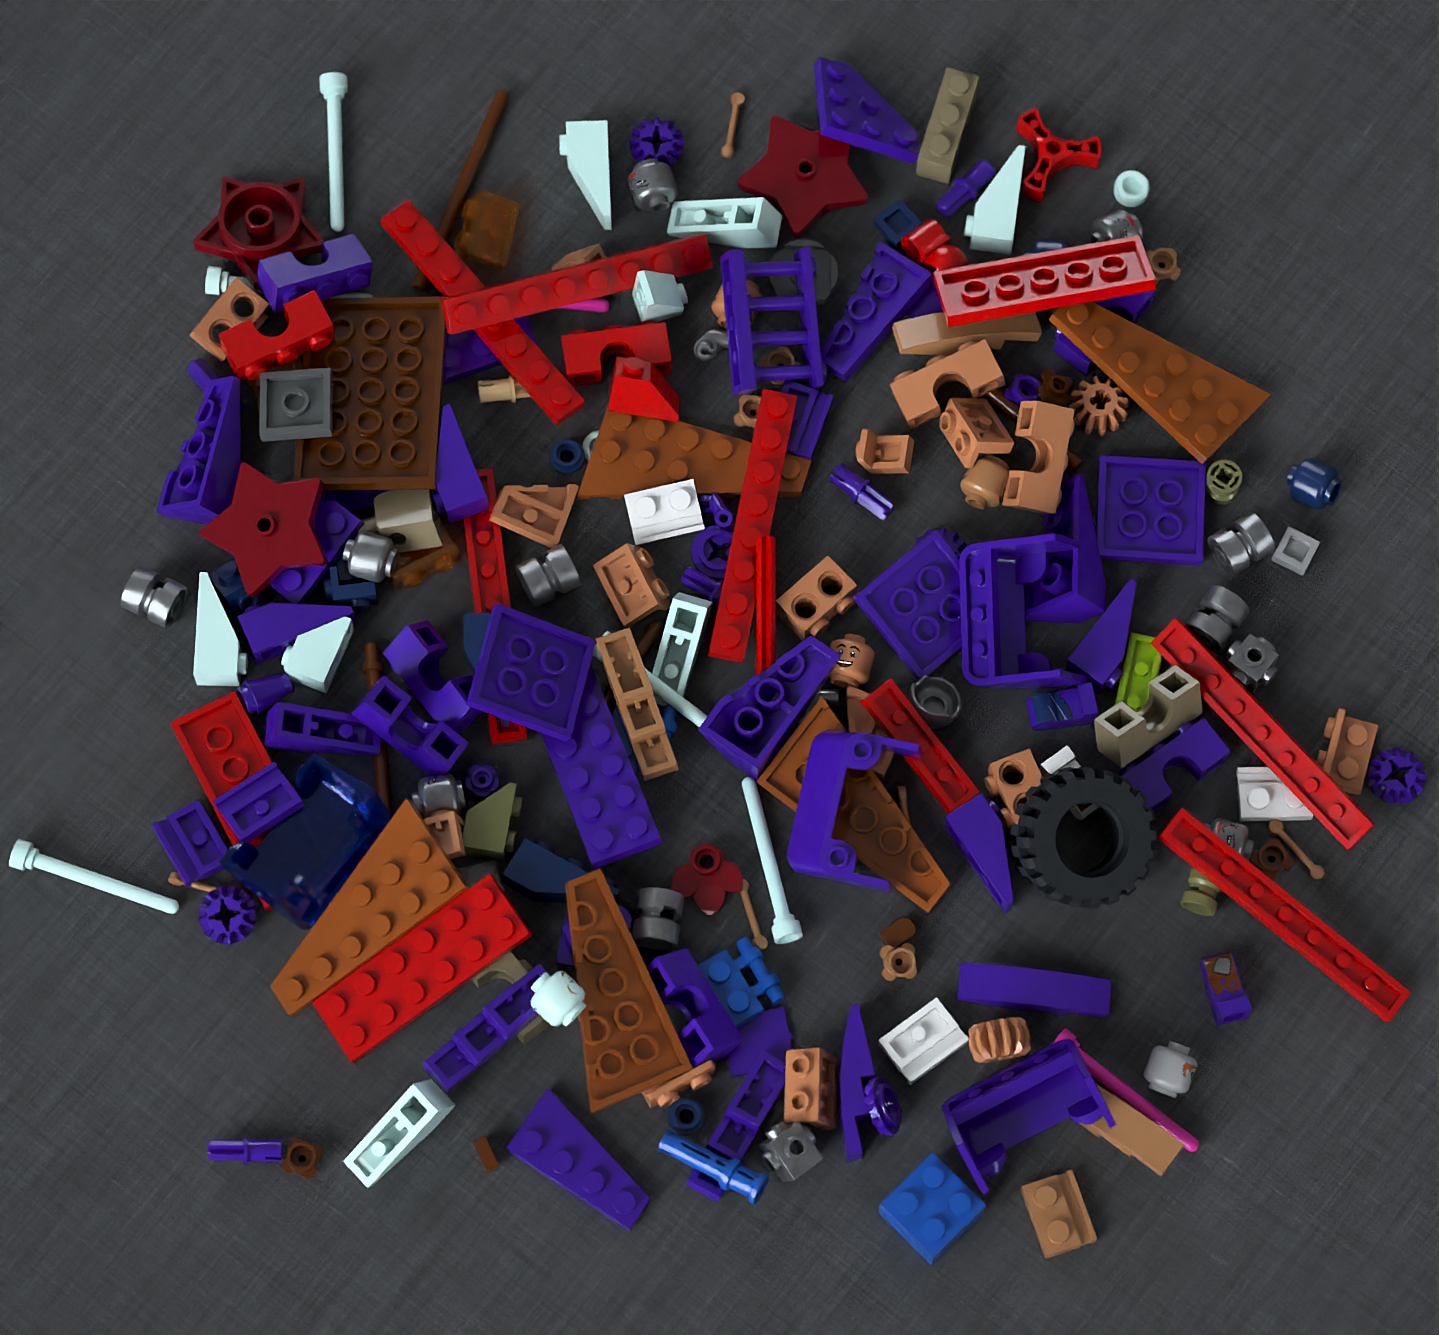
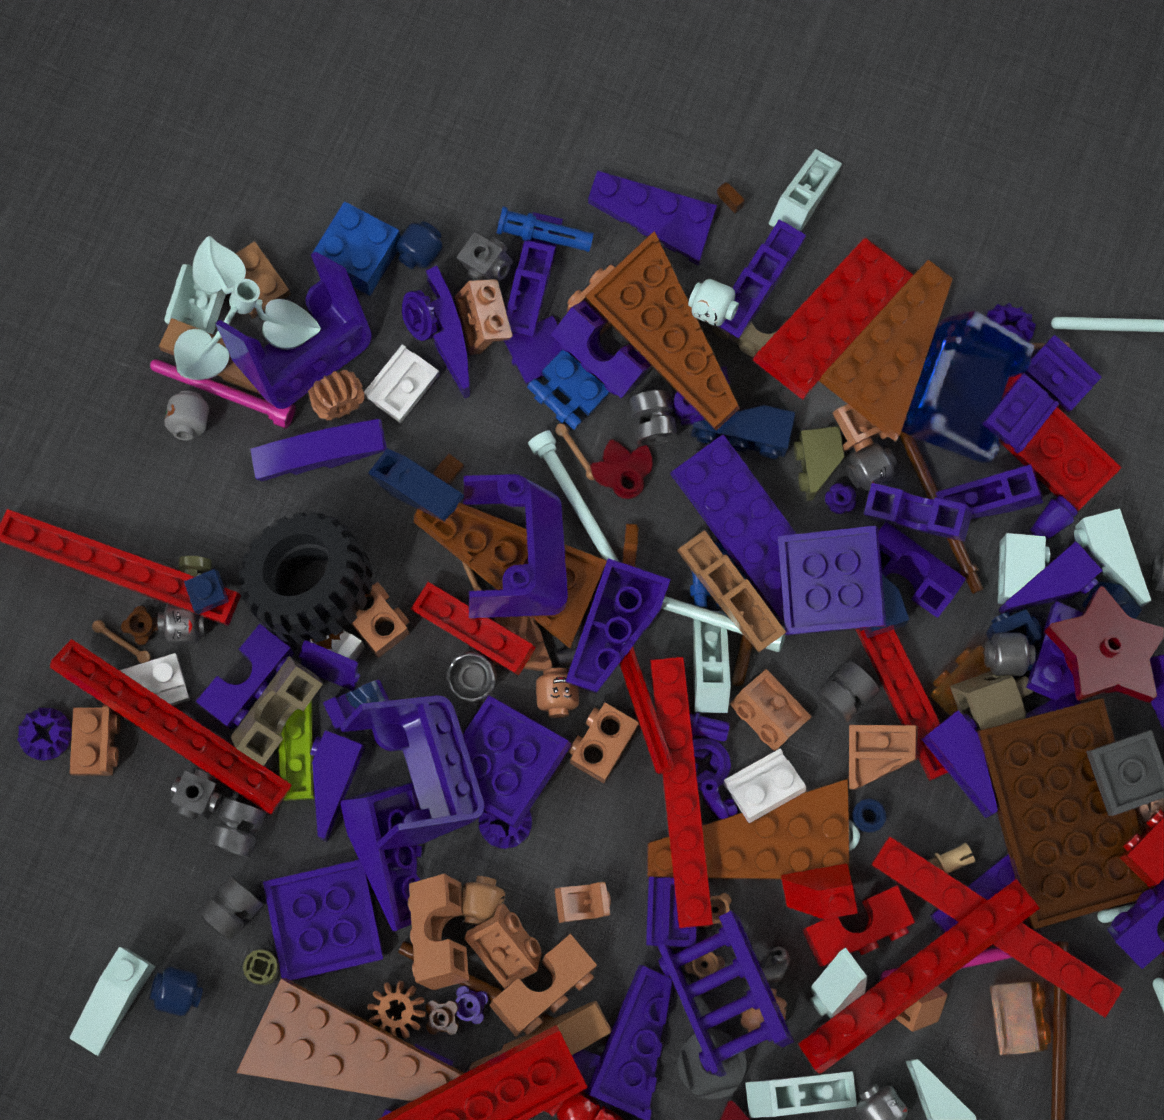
camera: 160 degrees right, 5 degrees up
(248, 1150) = (922, 147): dark purple axle -> none
(308, 1167) = (876, 146): reddish brown plate -> none
(686, 1105) = (578, 262): dark blue plate -> none
(725, 793) = (630, 544): none -> dark orange tile
(860, 1191) = (419, 245): none -> dark blue head
(862, 491) = (592, 859): dark purple axle -> none
(908, 962) = (435, 438): medium nougat plate -> none
(940, 905) = (415, 485): none -> dark blue slope
(980, 837) = (398, 566): dark purple slope -> none
(1037, 1133) = (221, 269): none -> light aqua plant
(1079, 749) = (330, 665): none -> dark purple piece
(1128, 1199) = (193, 305): none -> light aqua bracket
(1193, 843) = (206, 591): none -> dark blue plate
(1224, 988) = (156, 497): leg -> none
(1295, 551) = (179, 920): light grey plate -> none
(1378, 497) = (111, 999): none -> light aqua slope

